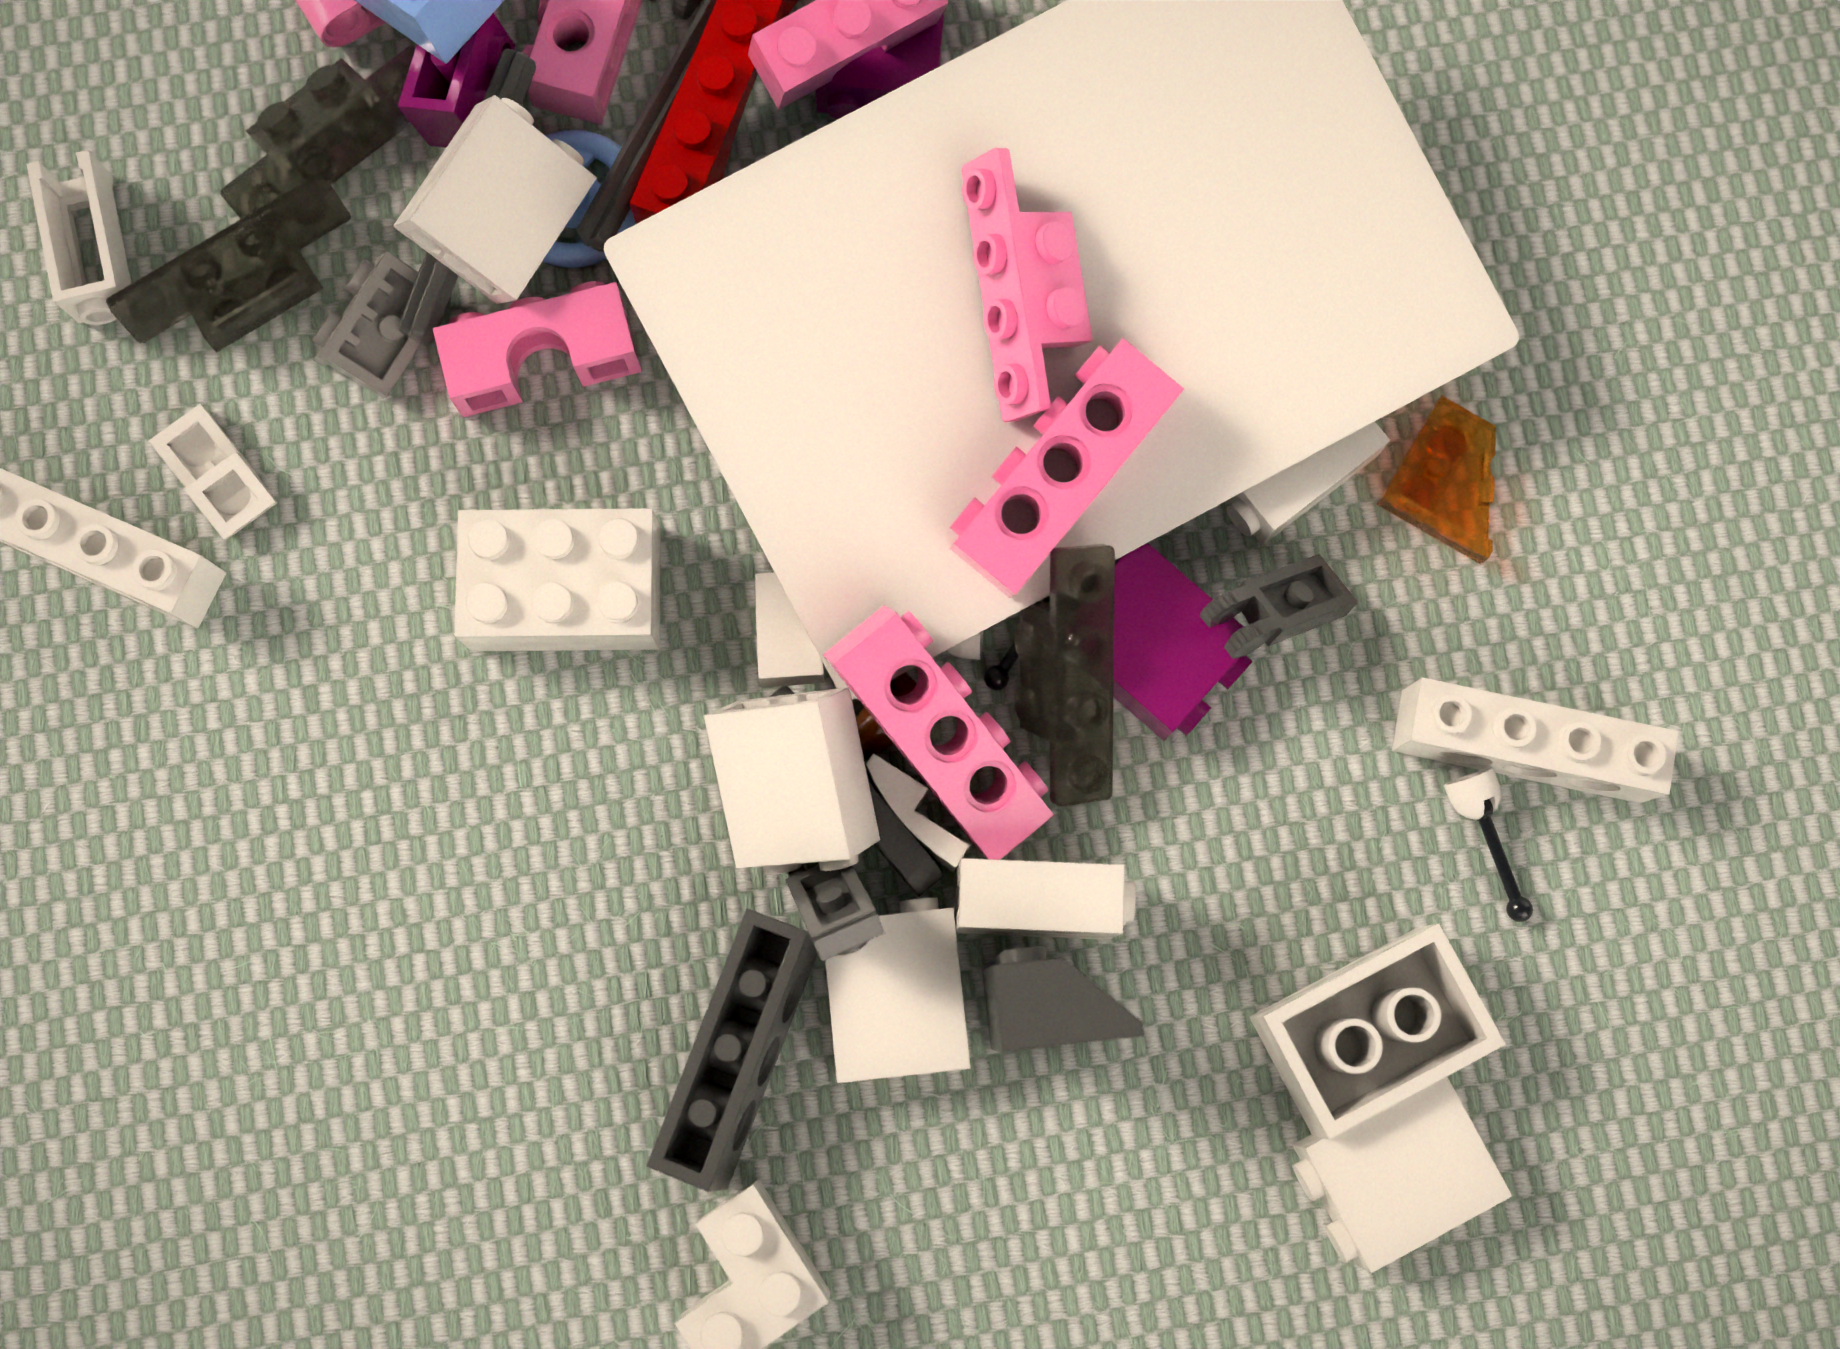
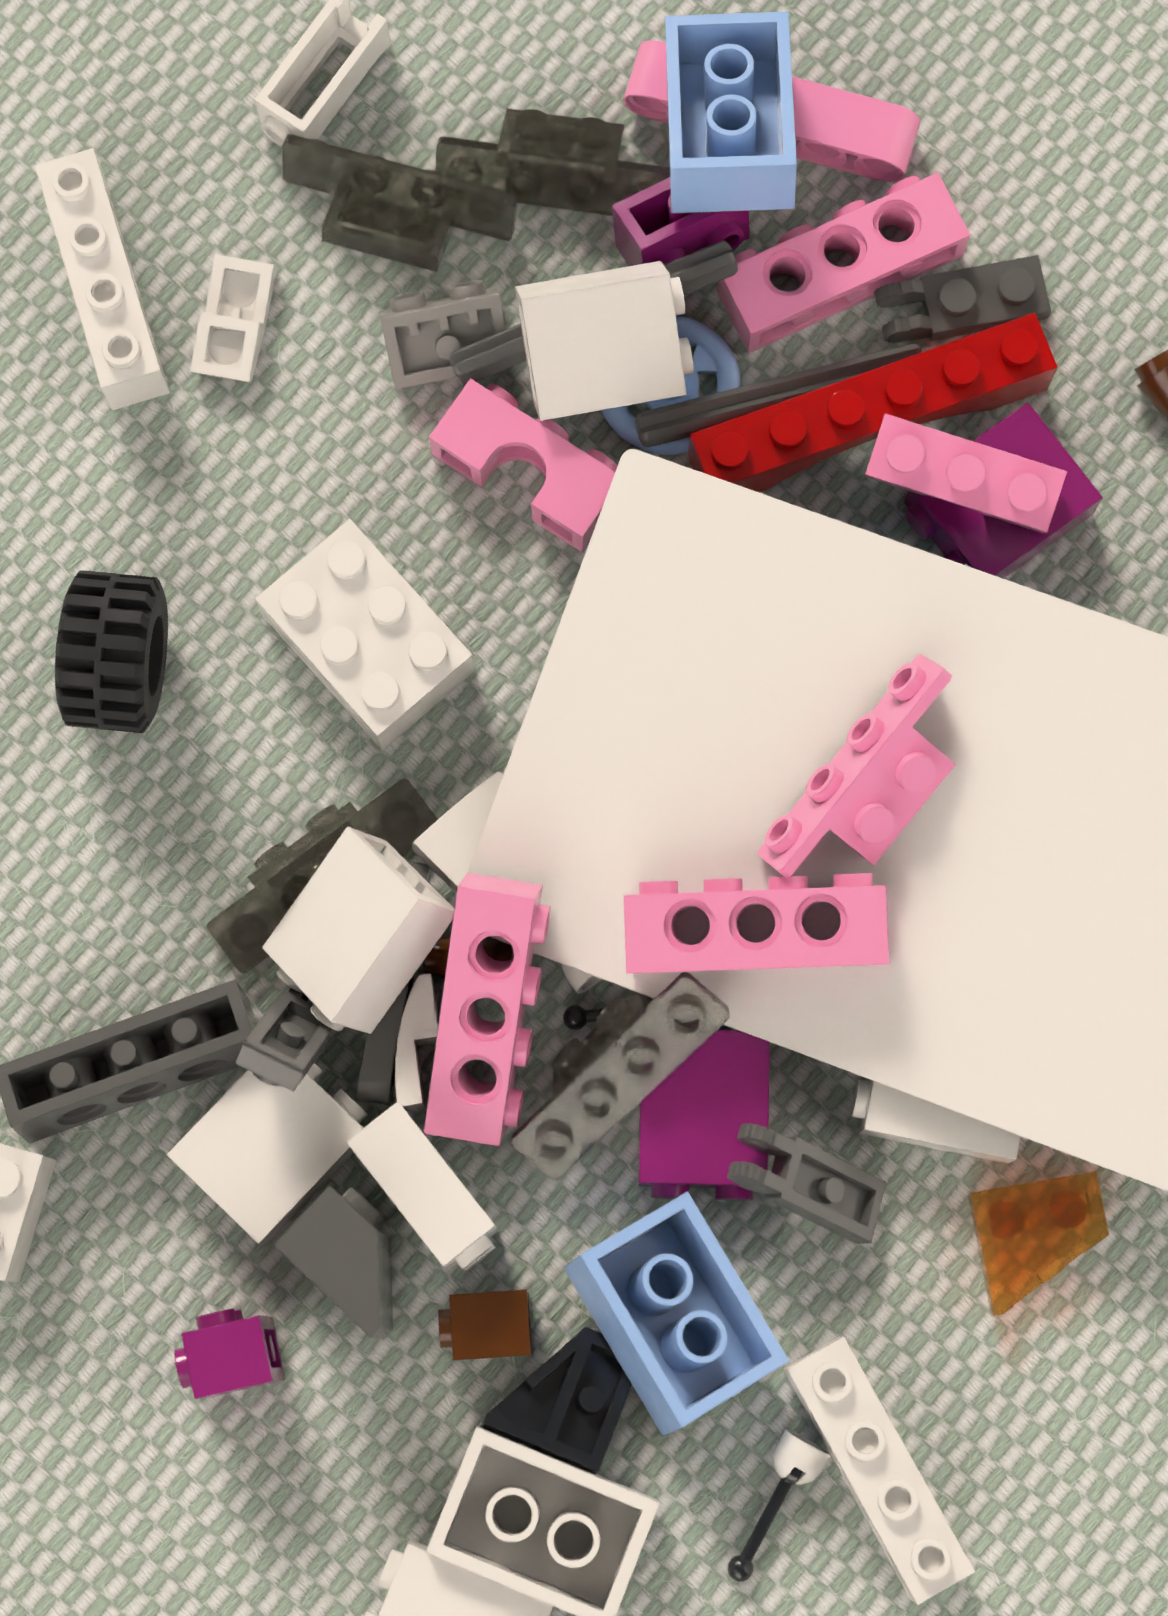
camera: 55 degrees right, 0 degrees up
(392, 784) = (111, 651): none -> black tyre
(694, 800) = (283, 871): none -> clear smoke bracket
(1041, 1168) = (228, 1354): none -> magenta brick
(1181, 943) = (486, 1325): none -> reddish brown brick
(1292, 928) = (567, 1403): none -> black wing
(1298, 790) = (675, 1314): none -> light blue brick

